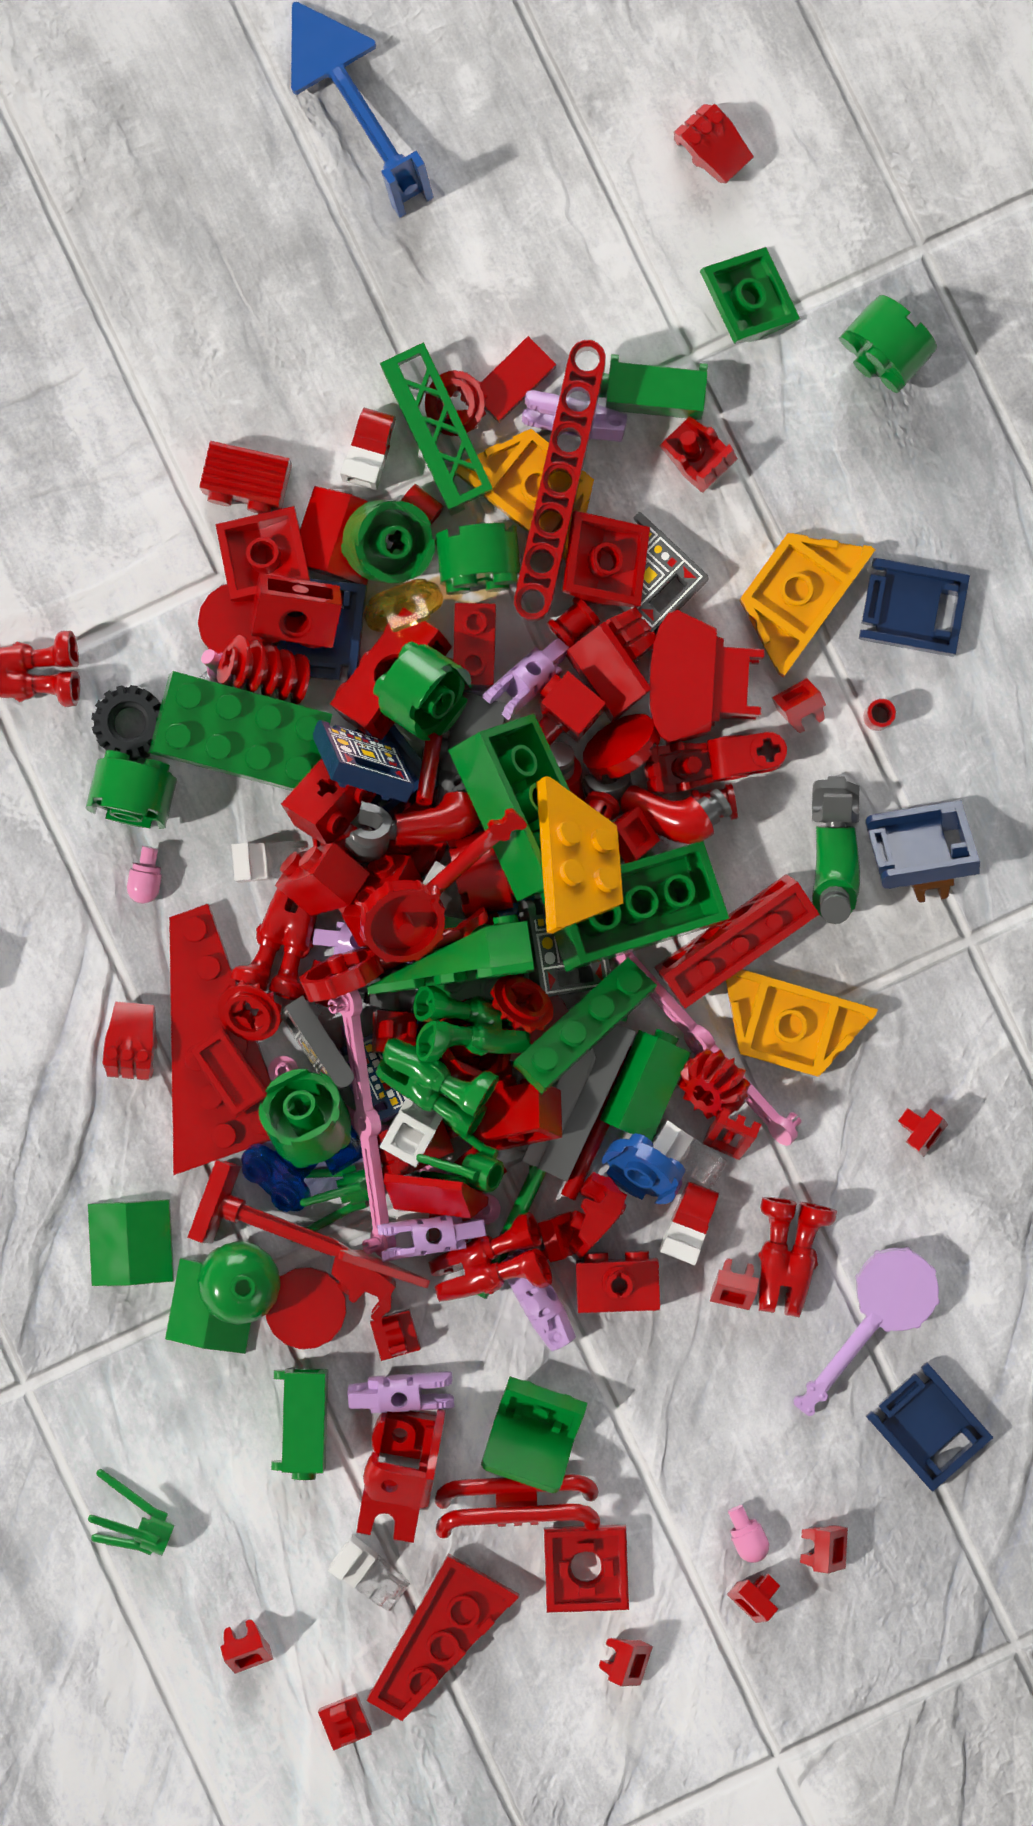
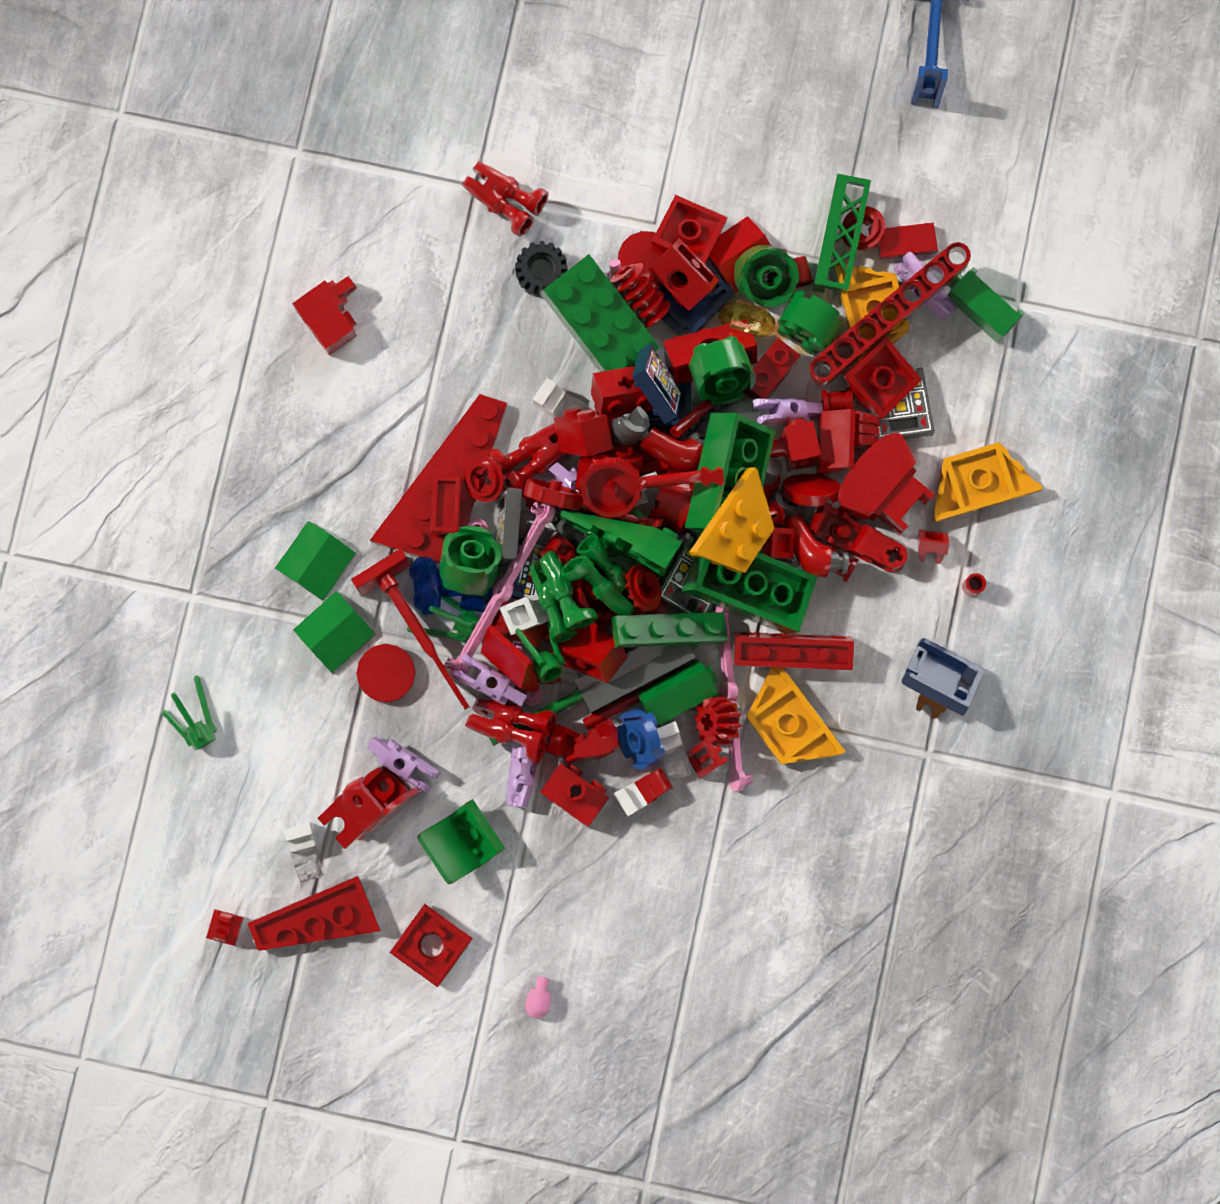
camera: 30 degrees right, 5 degrees down
(130, 1041) = (403, 446): red hand -> none
(132, 790) = (513, 306): green brick -> none
(145, 877) = (483, 361): bright pink cylinder -> none
(238, 1282) = (359, 627): green cylinder -> none
(245, 477) = (712, 181): red brick -> none
(247, 1651) = (200, 842): red tile -> none
(303, 1422) = (334, 736): green brick -> none
(357, 1280) = (430, 677): red hand -> none
(368, 449) = (794, 218): leg -> none
(395, 1335) = (425, 727): red tile -> none
(514, 1504) = (420, 874): red piece -> none
(629, 1661) = (414, 1018): red tile -> none
(698, 453) = (981, 360): red hand -> none
(713, 143) = (1122, 193): red hand -> none
(734, 1288) = (640, 849): tile -> none
(750, 295) = (1078, 293): green slope -> none
(755, 1597) = (514, 1037): red tile -> none
(791, 1267) = (680, 860): red piece -> none
(829, 1548) = (580, 1041): red tile -> none
(837, 851) = (891, 642): piece -> none
(888, 343) = (1137, 377): green brick -> none
(894, 1293) = (731, 922): lavender piece -> none
(906, 607) = (1036, 535): dark blue container -> none
(923, 1421) = (690, 1012): dark blue container -> none
(924, 1130) = (819, 841): red tile -> none

